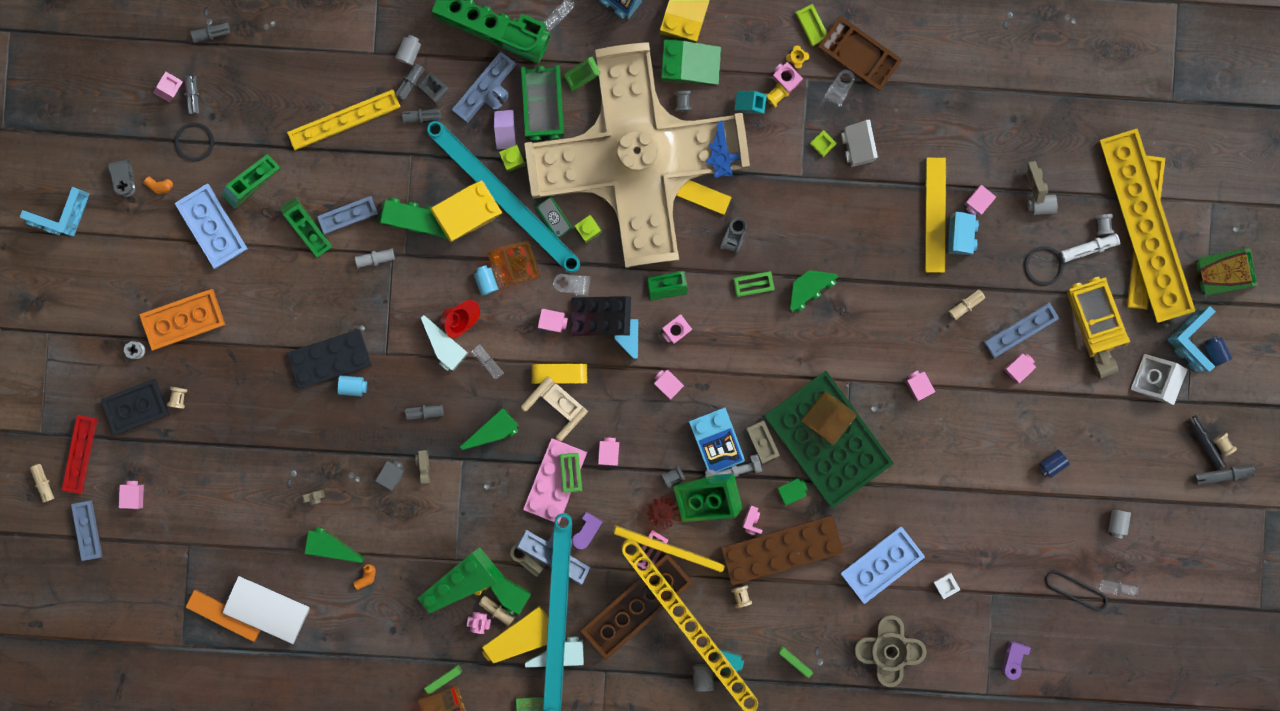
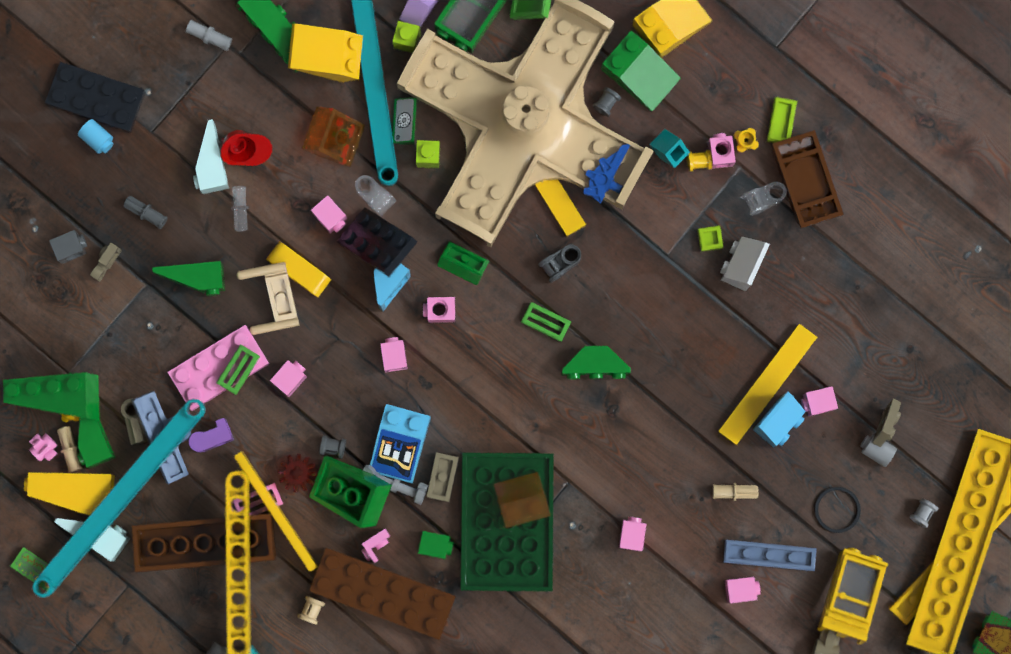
camera: 30 degrees right, 5 degrees down
(485, 280) = (295, 131): medium azure brick -> none
(1091, 247) = (895, 525): white pin -> none

